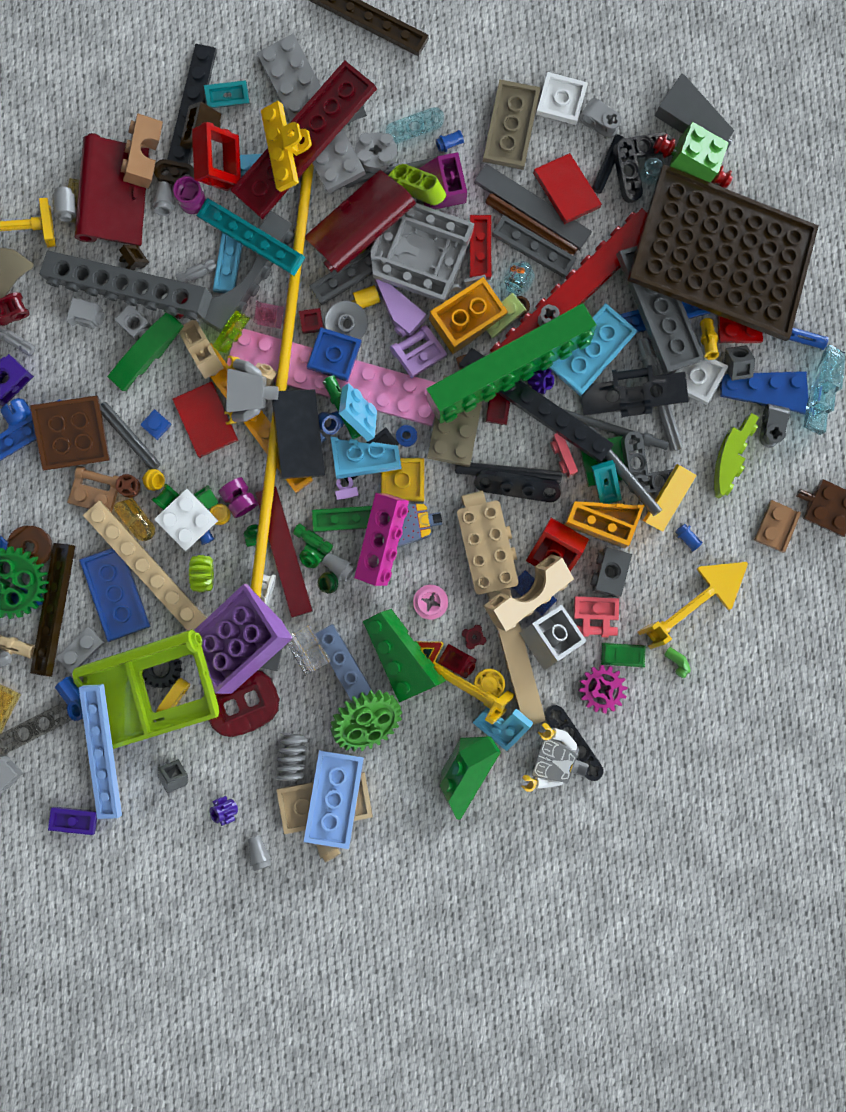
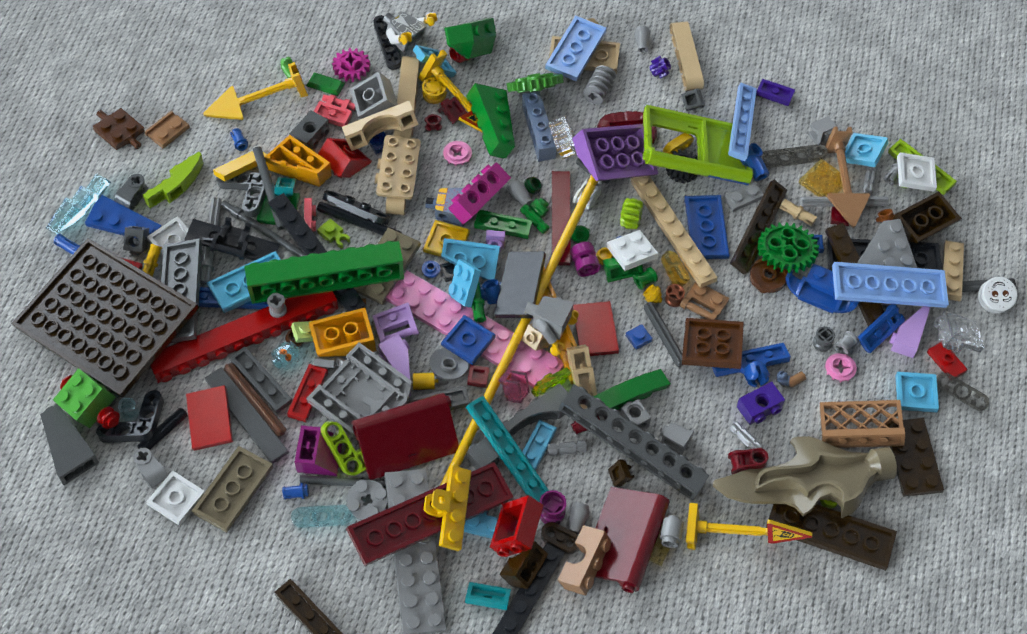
camera: 160 degrees left, 25 degrees down
(194, 842) = (687, 56): none -> tan beam
(533, 449) = (332, 231): none -> lime plate

